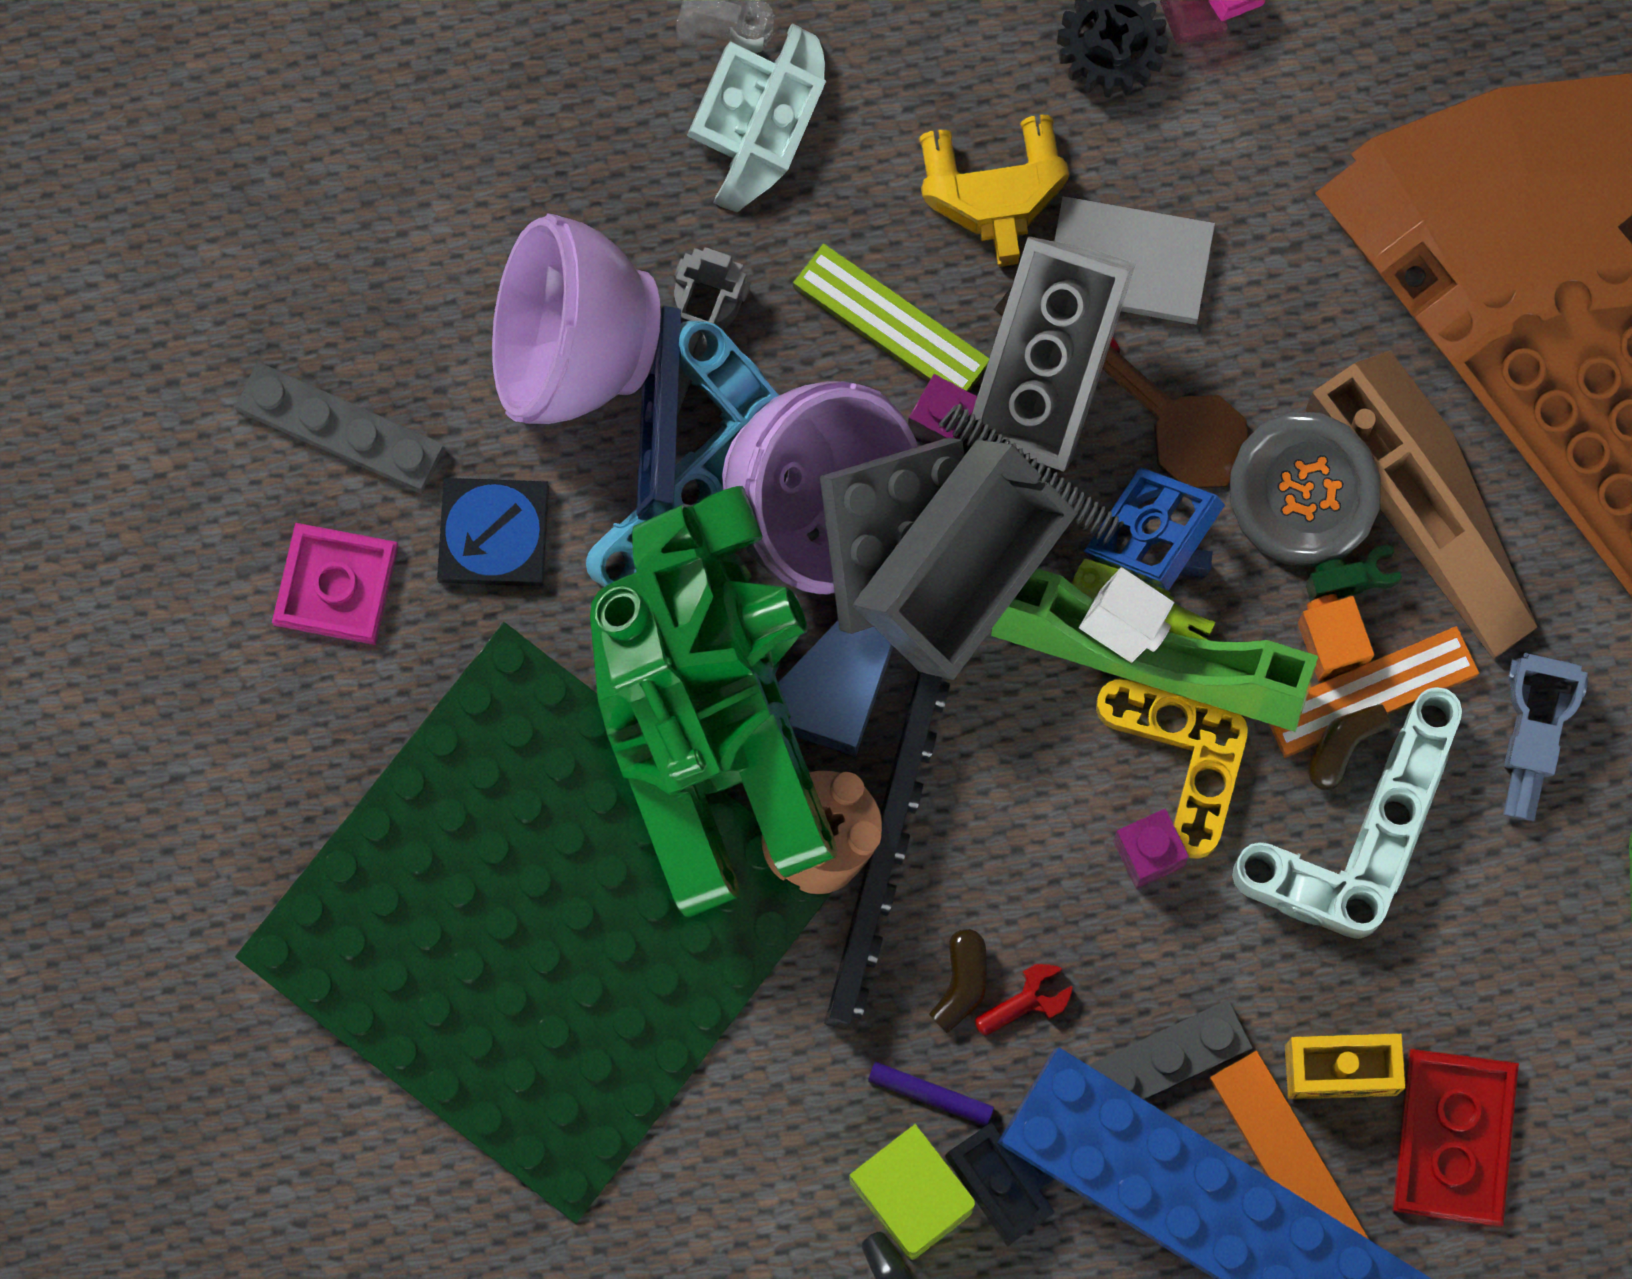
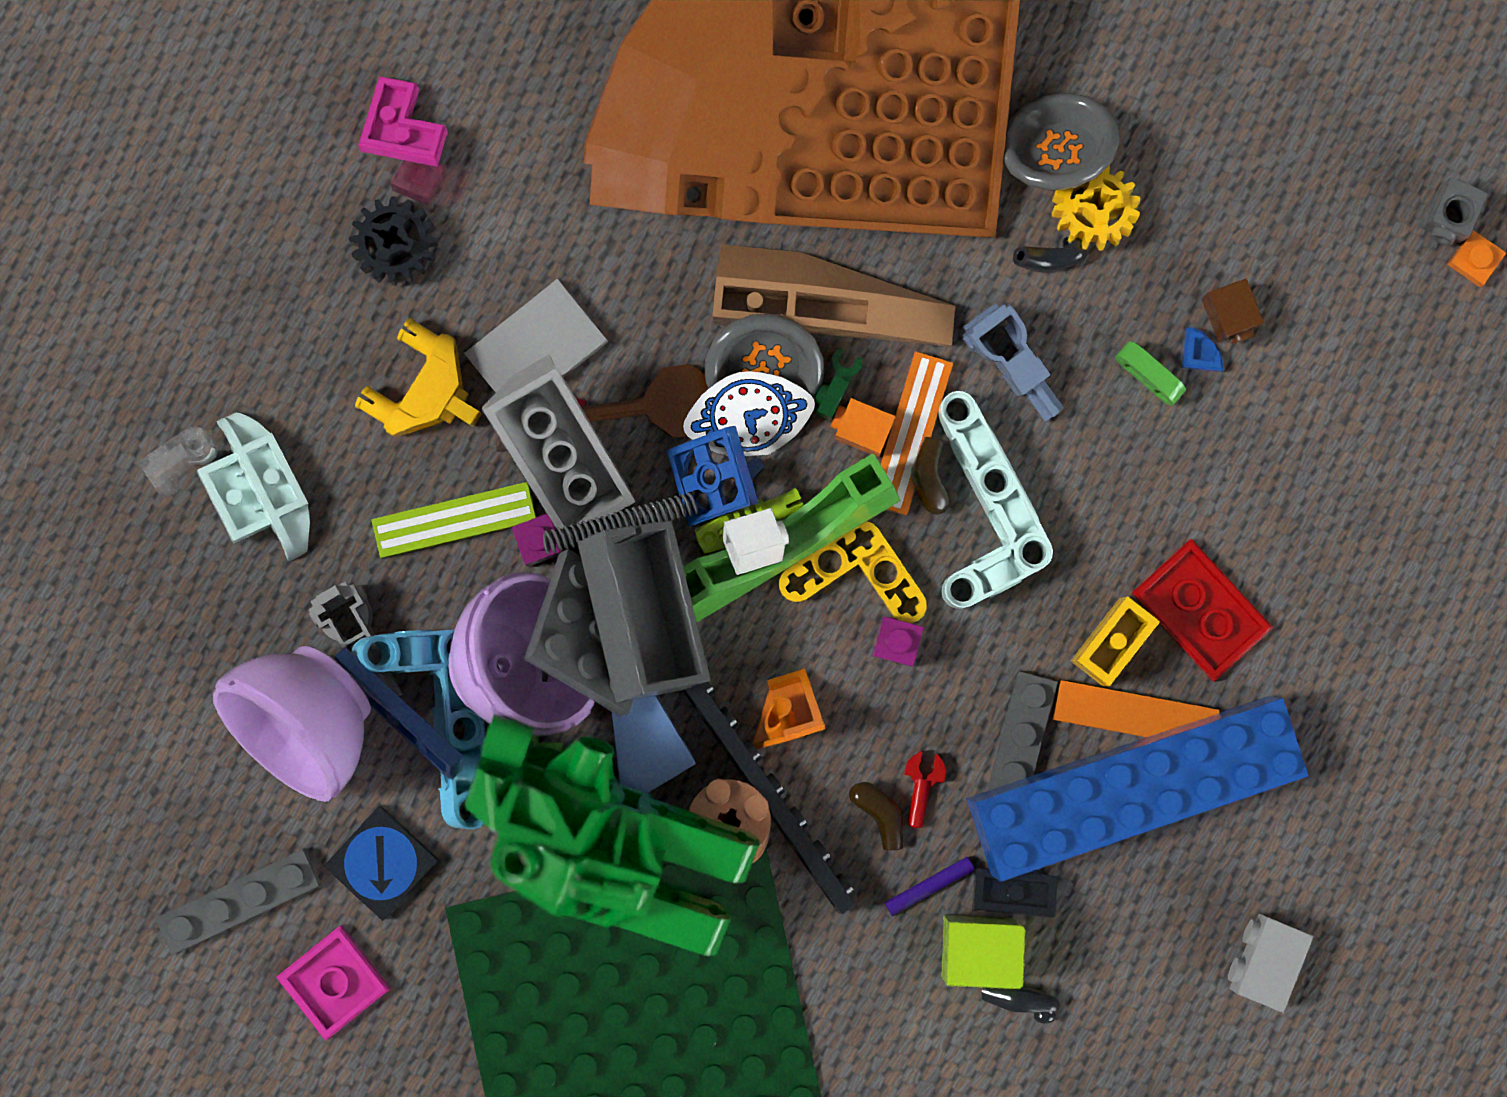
camera: 50 degrees left, 10 degrees up
(985, 803) = (788, 711): none -> orange slope
(1266, 518) = (759, 404): none -> sticker

